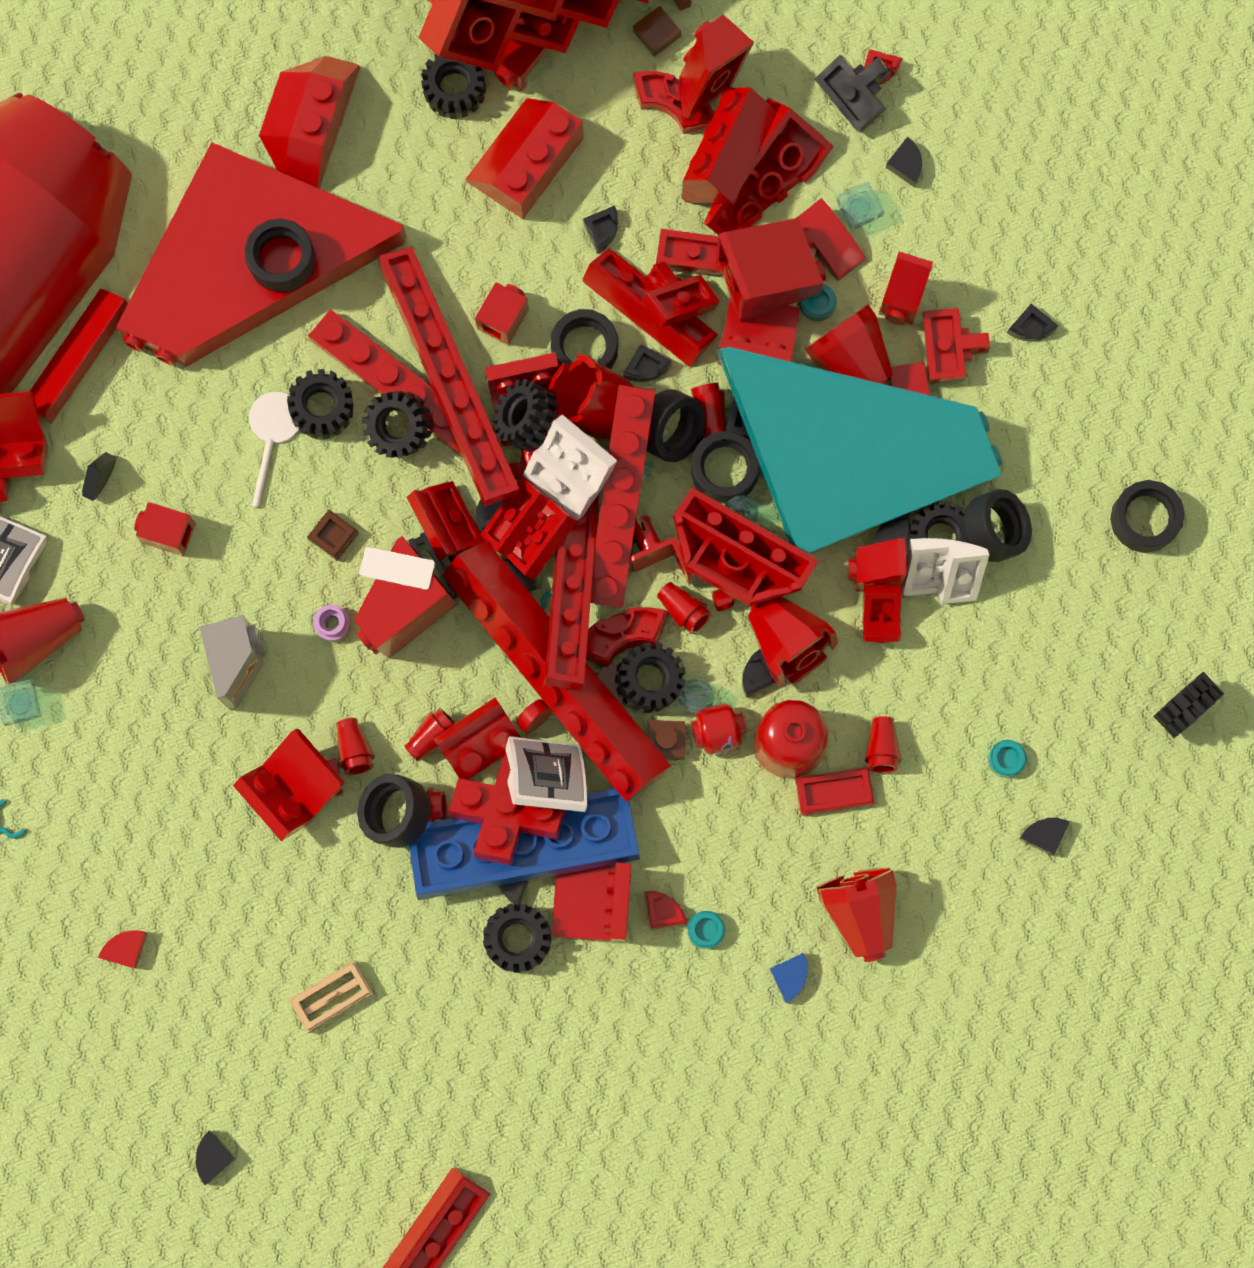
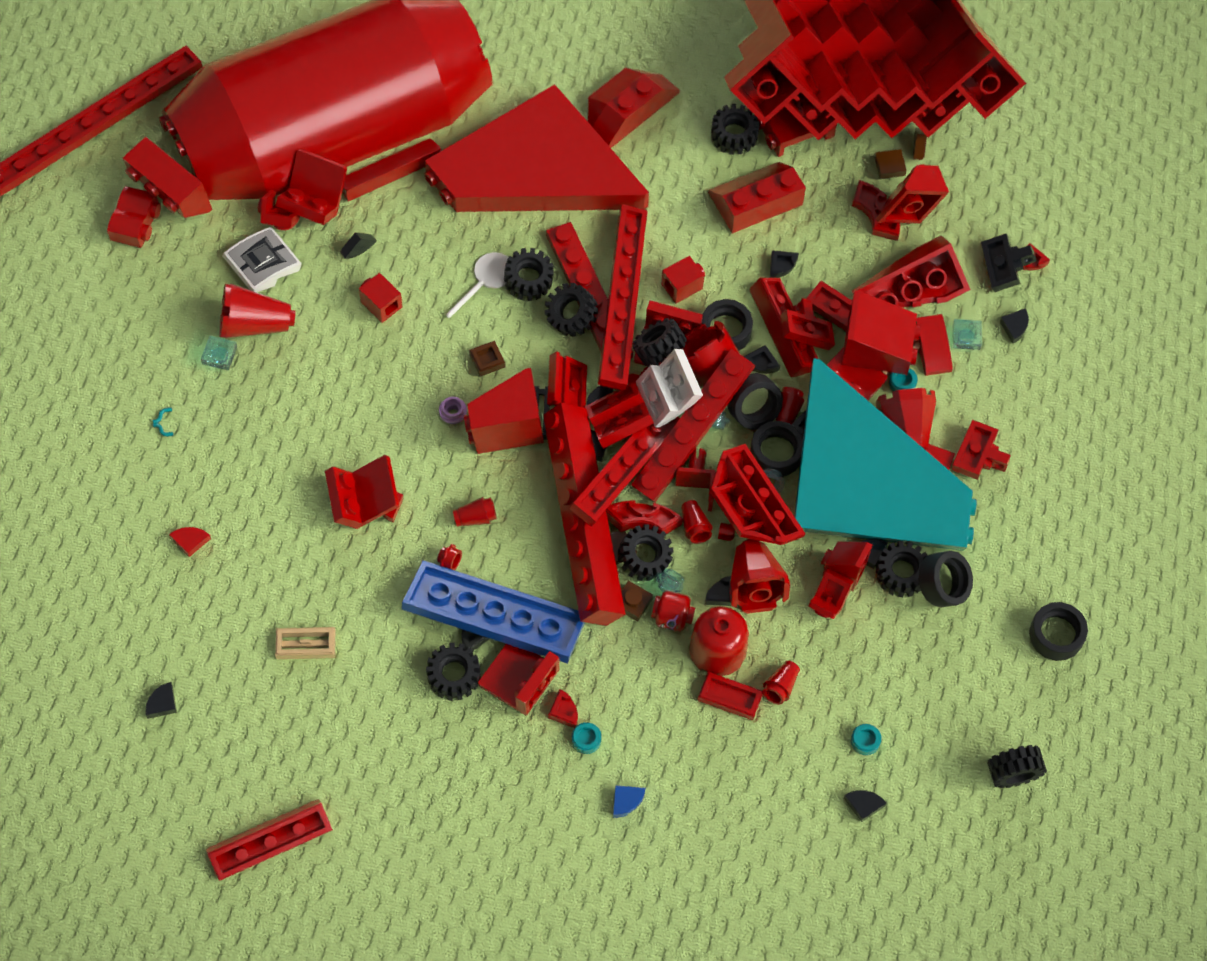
camera: 25 degrees right, 15 degrees down
(233, 657) = (374, 393): light grey slope -> none
(274, 229) = (556, 150): black tyre -> none
(353, 748) = (418, 494): red cone -> none
(372, 804) = (428, 554): black tyre -> none
(397, 568) = (515, 385): white sticker -> none
(477, 739) = (504, 531): red plate -> none
(501, 818) = (497, 583): red plate -> none
(533, 716) = (551, 537): red tile -> none
(546, 774) = (537, 573): slope -> none
(728, 147) = (893, 248): red slope -> none
(862, 910) = (702, 779): red cone -> none
(905, 289) = (967, 397): red slope -> none
(944, 568) = (890, 586): white slope -> none
(1032, 325) = (1045, 470): black tile -> none

